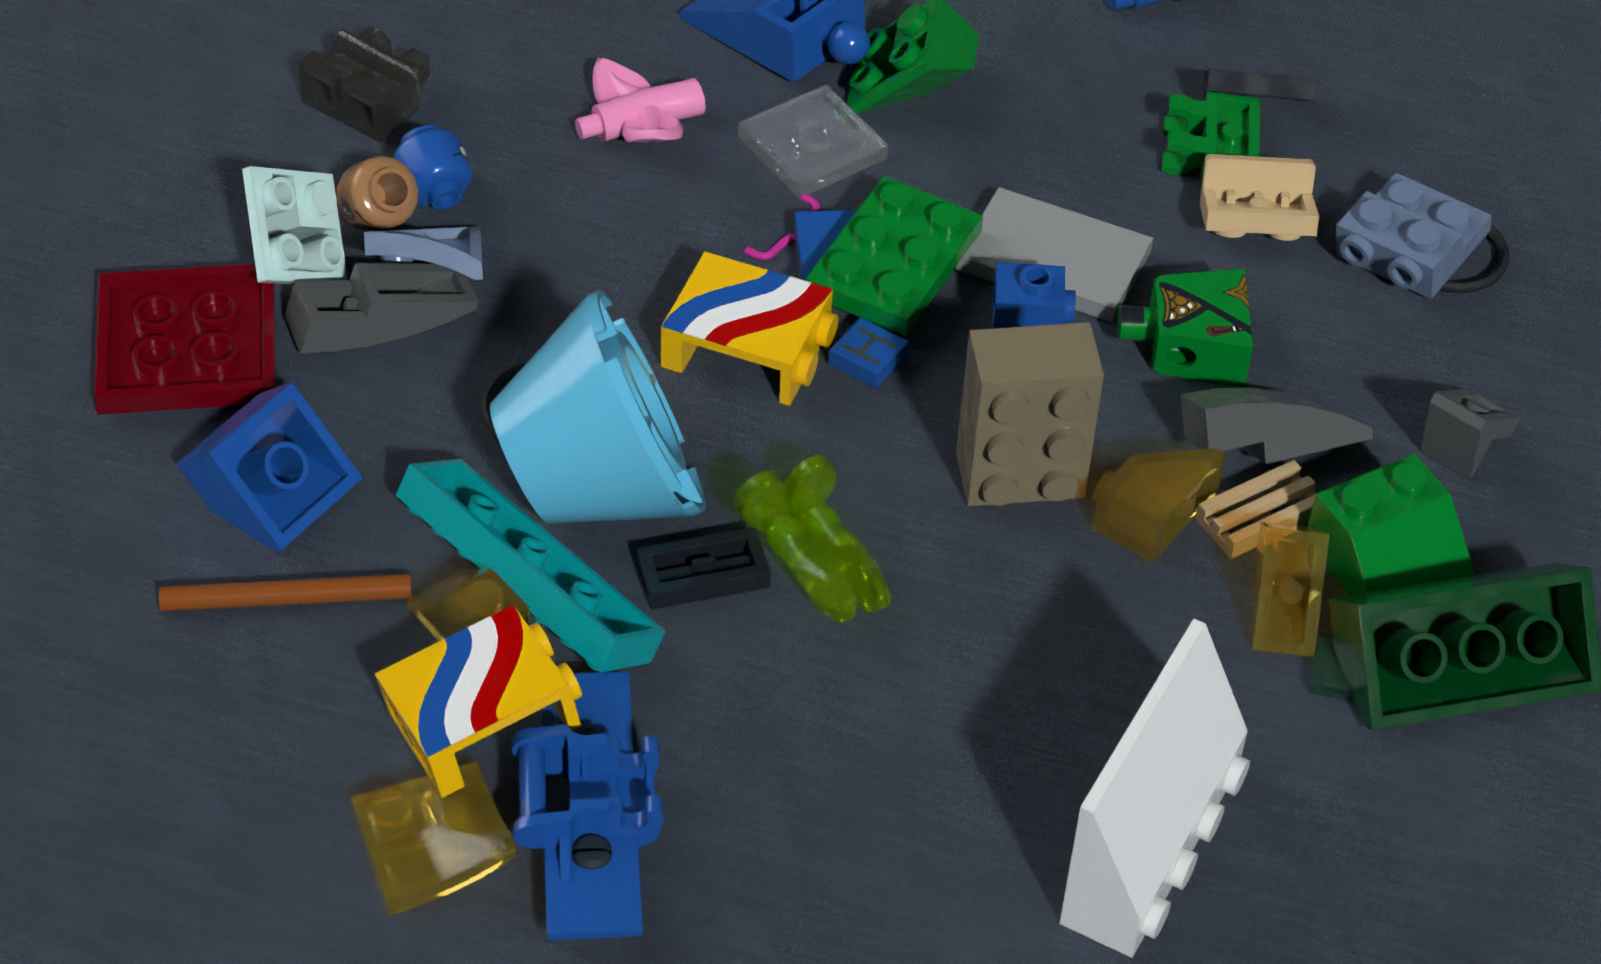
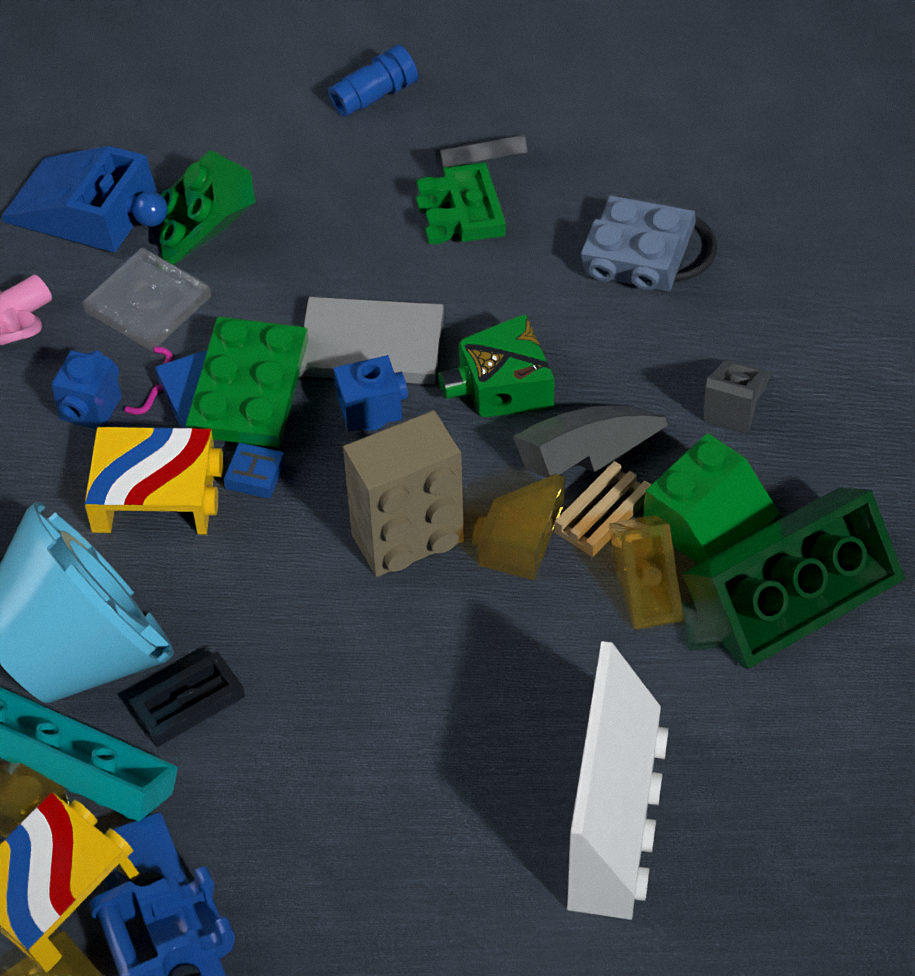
camera: 15 degrees left, 5 degrees up
(708, 211) = (86, 389): none -> blue brick
(812, 540) = (298, 665): clear neon green piece -> none
(1259, 196) = (513, 246): tan bracket -> none

